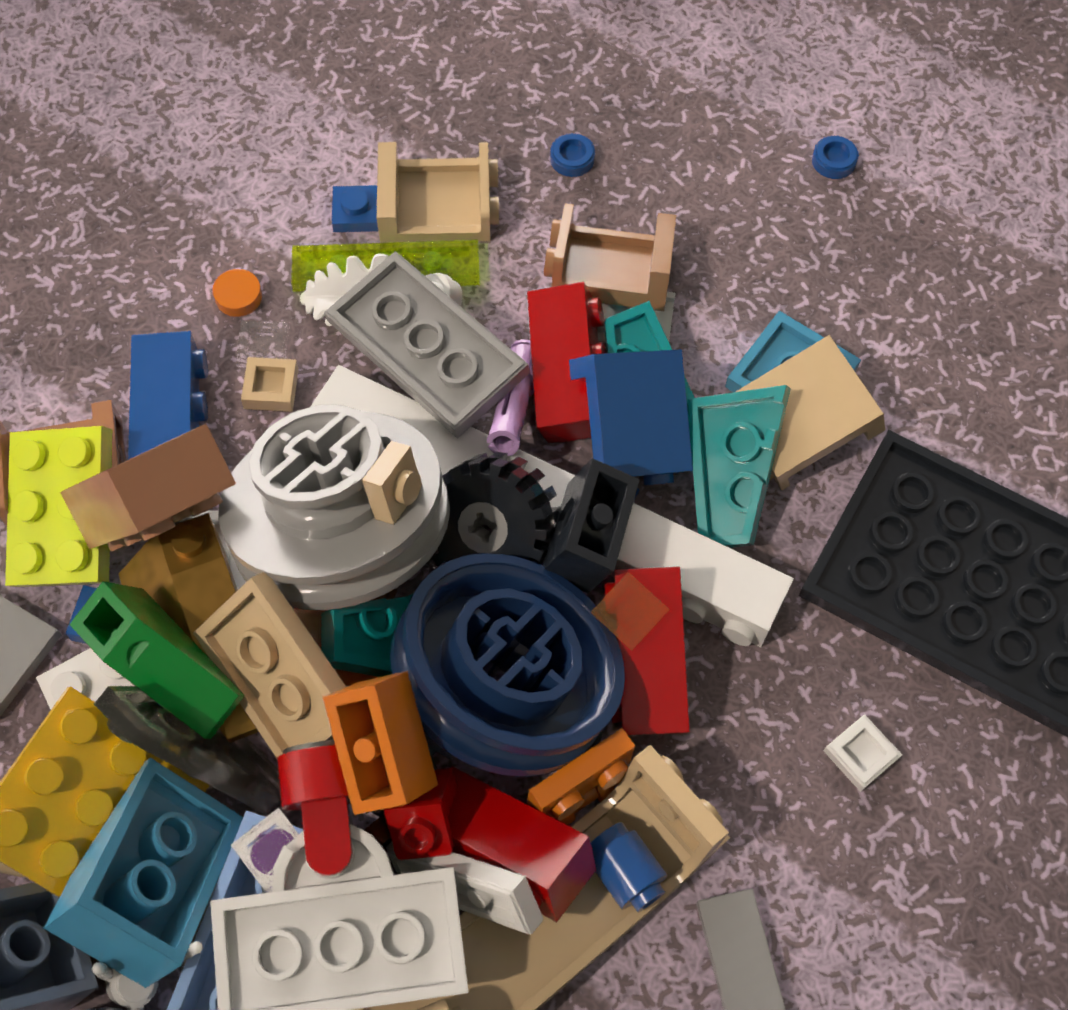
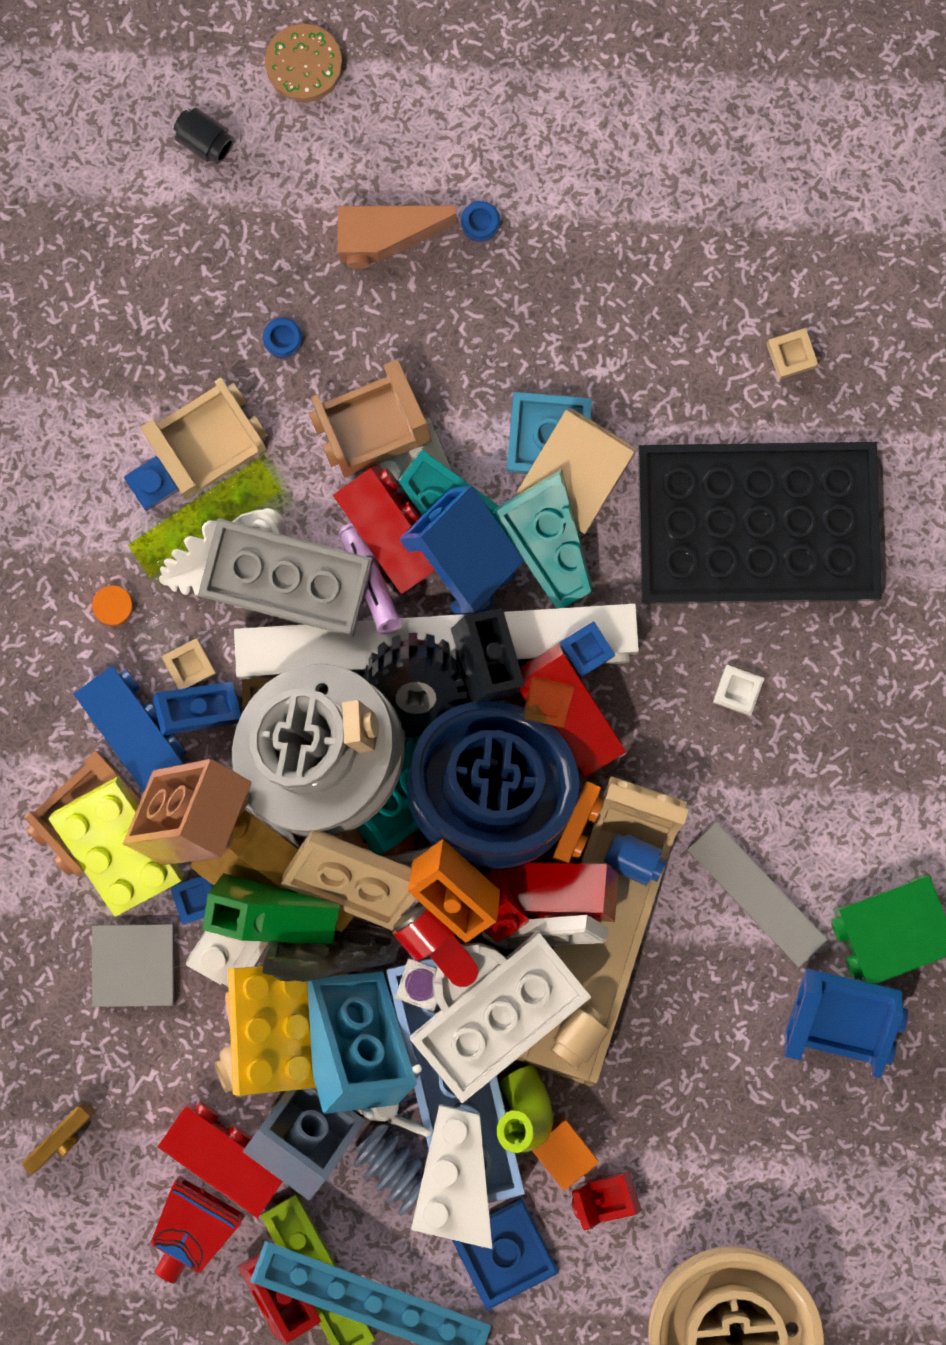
camera: 30 degrees left, 20 degrees up
(234, 415) = (197, 708): none -> blue plate
(710, 589) = (587, 649): none -> blue plate
(736, 113) = (382, 231): none -> nougat slope

